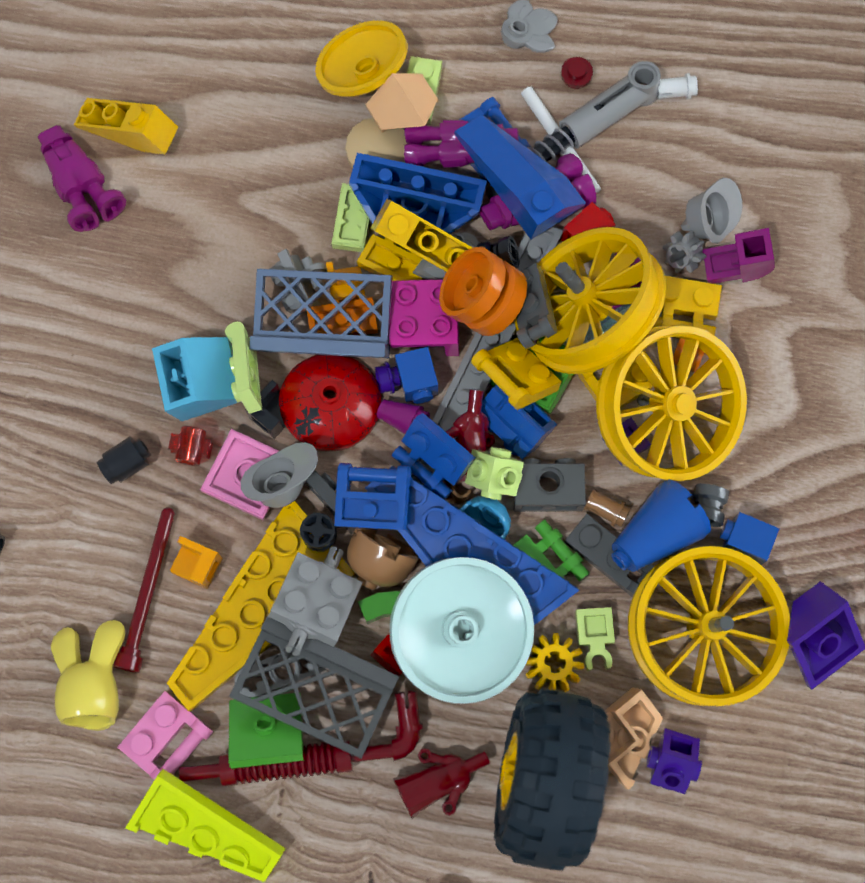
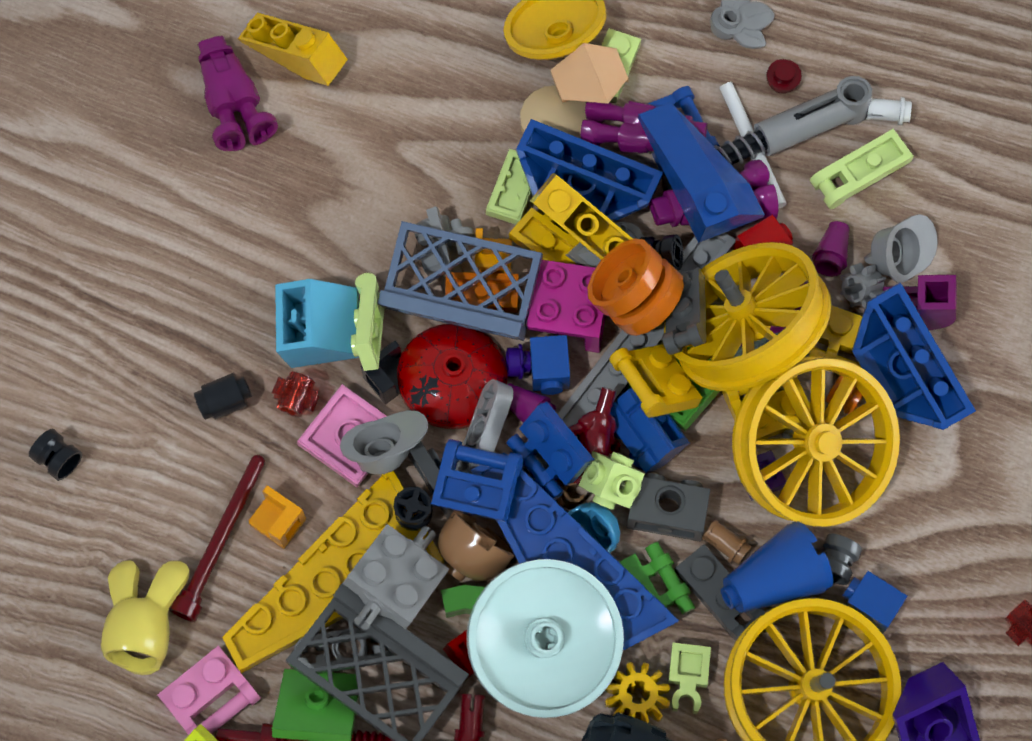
camera: 10 degrees right, 5 degrees down
(370, 438) = (487, 420): none -> light grey beam
(651, 223) = (832, 250): none -> magenta cone
(663, 144) = (862, 168): none -> yellowish green plate
(739, 314) = (908, 363): none -> blue wedge

